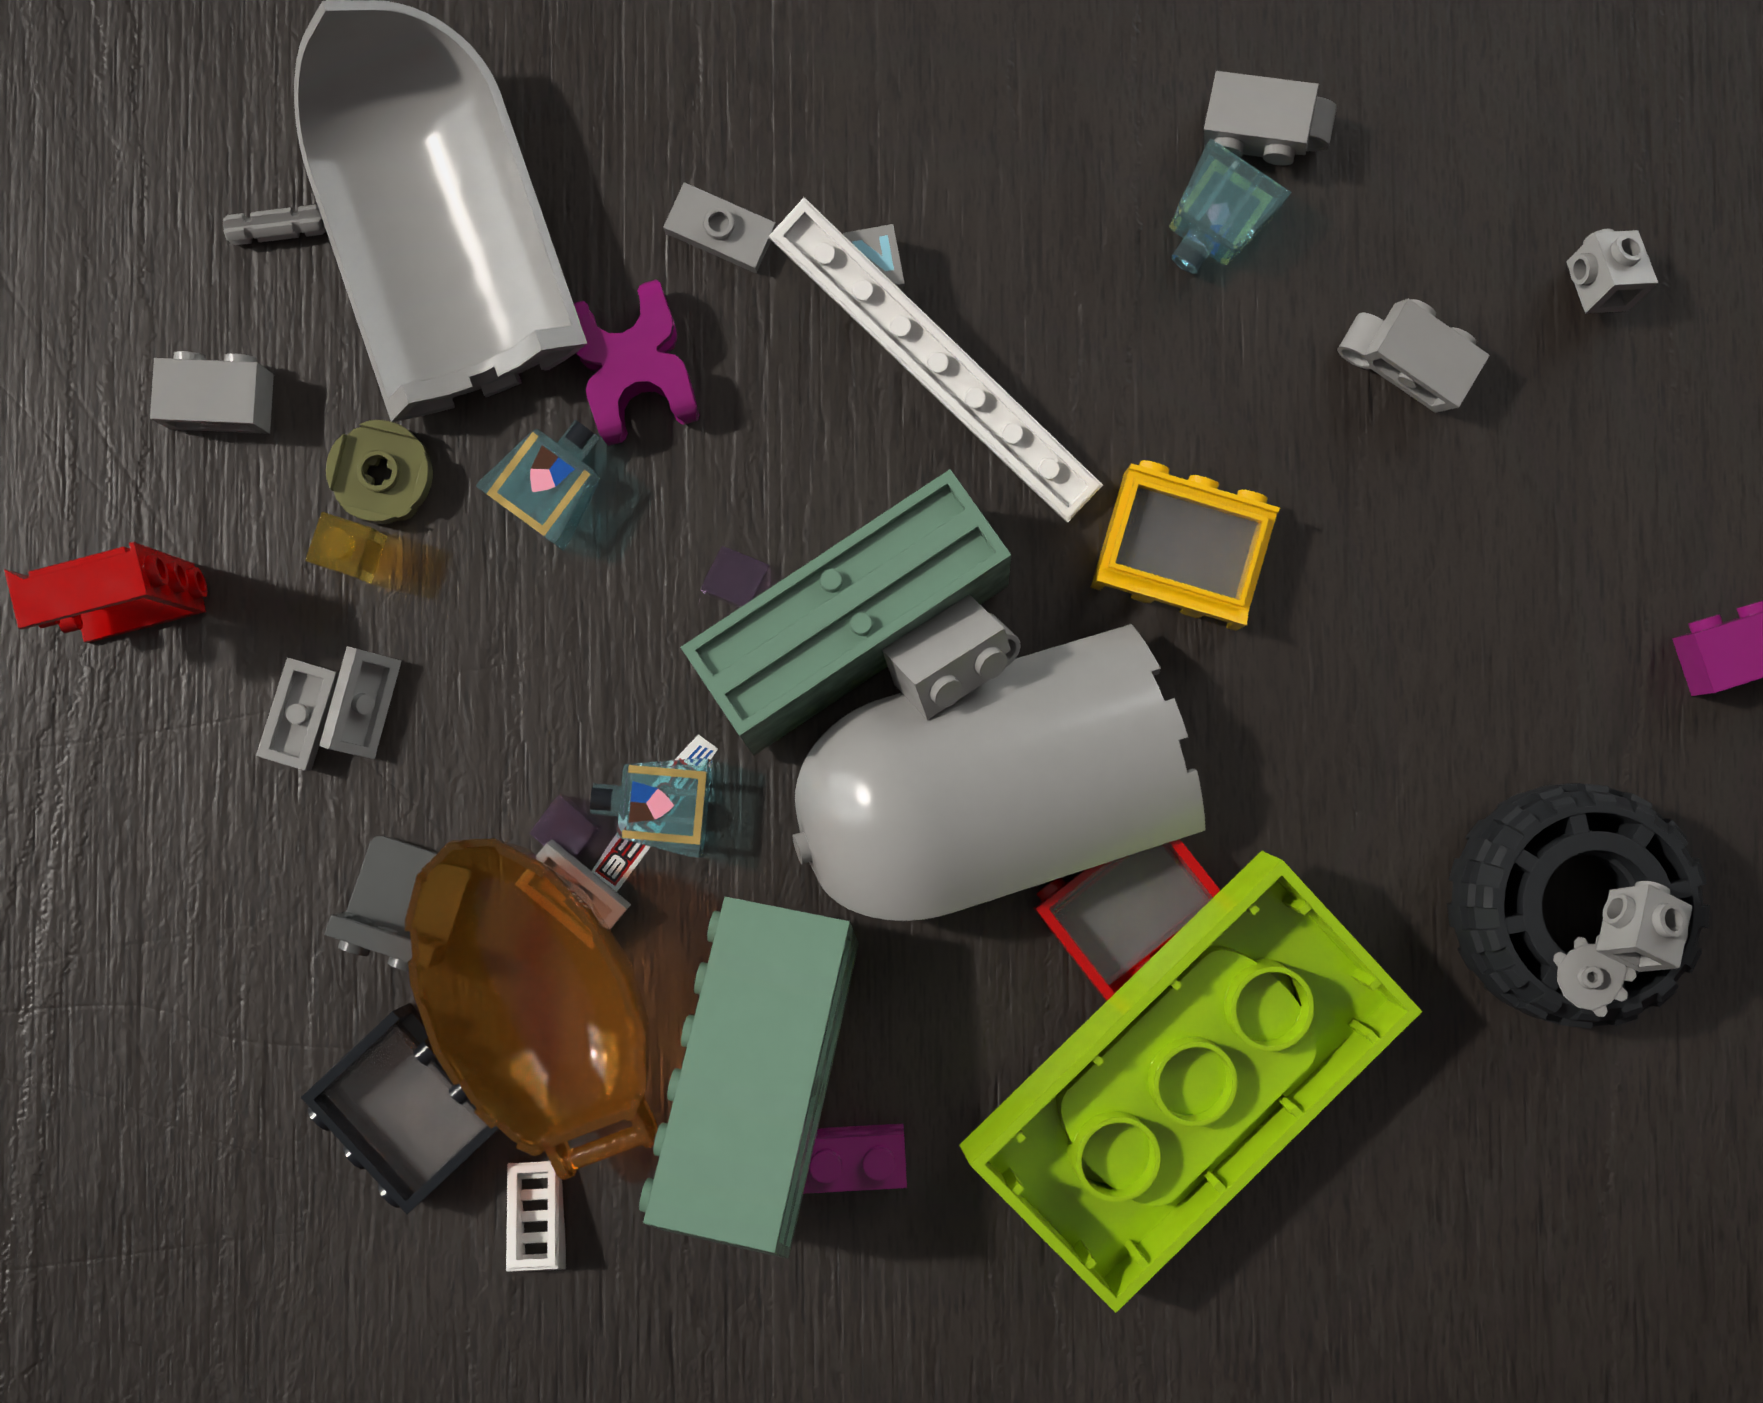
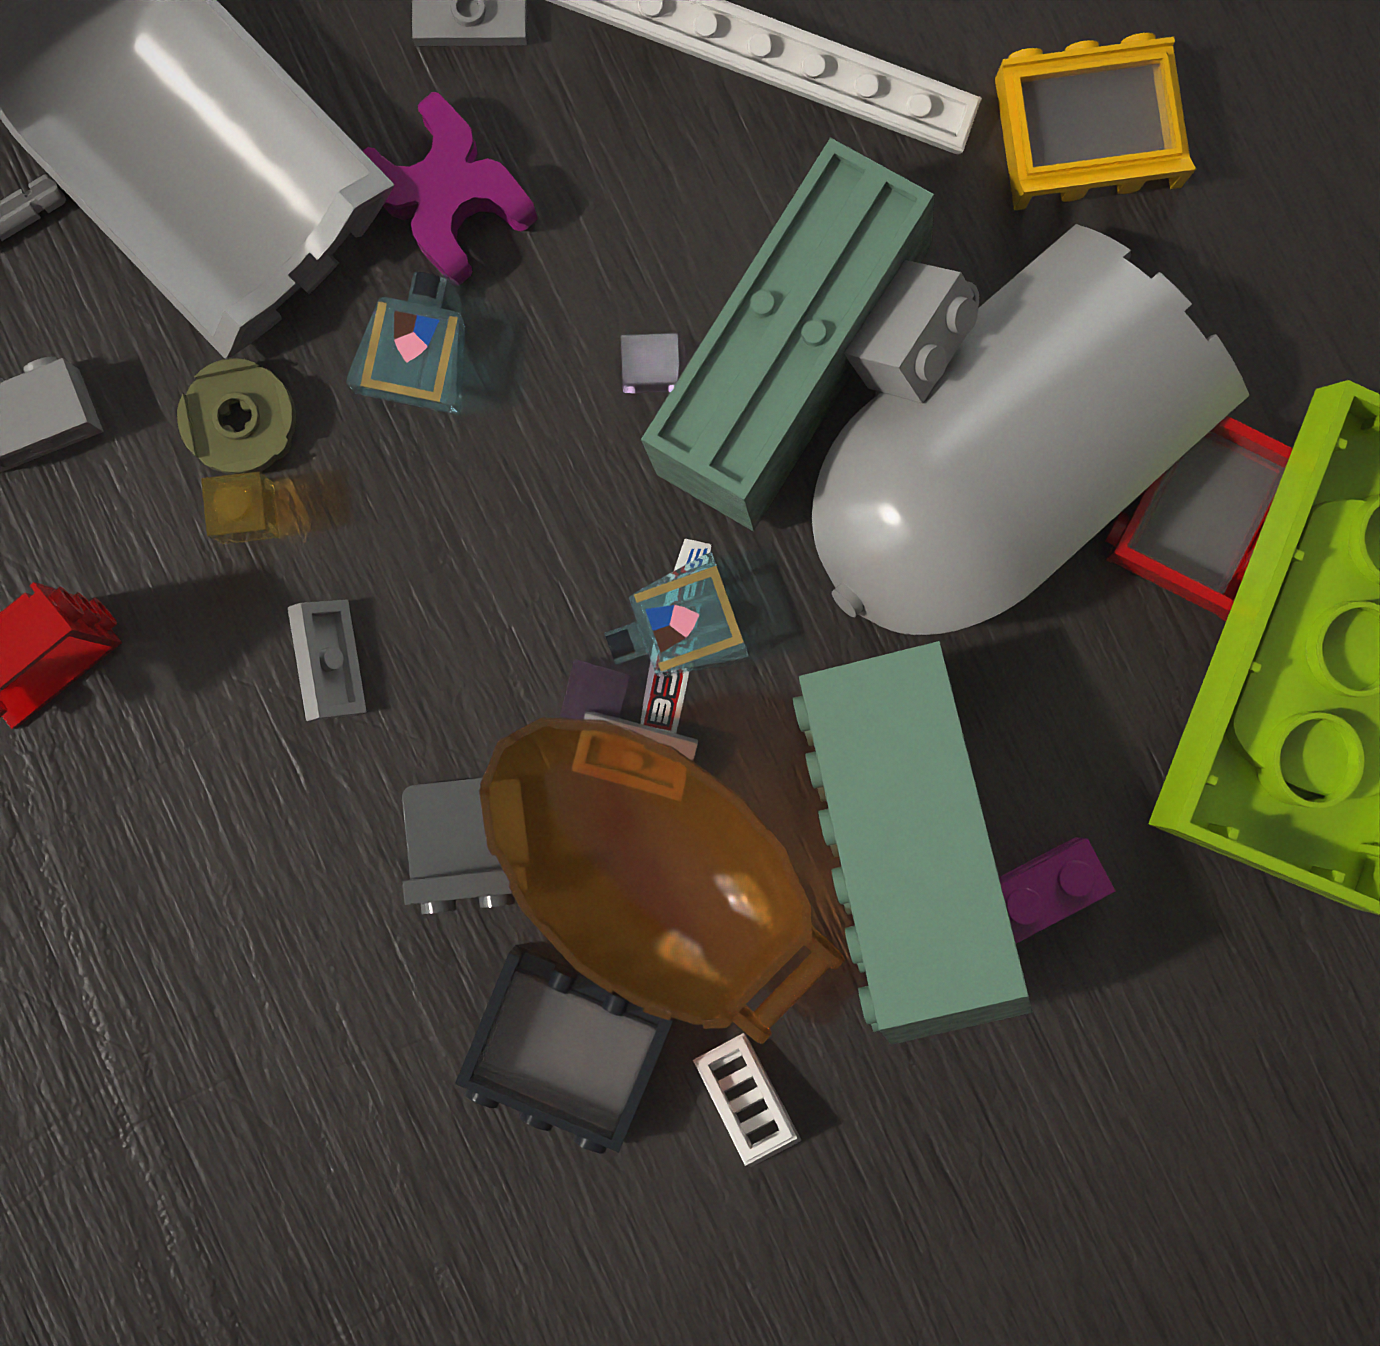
camera: 20 degrees left, 0 degrees up
(298, 715) = (268, 700): light grey plate -> none

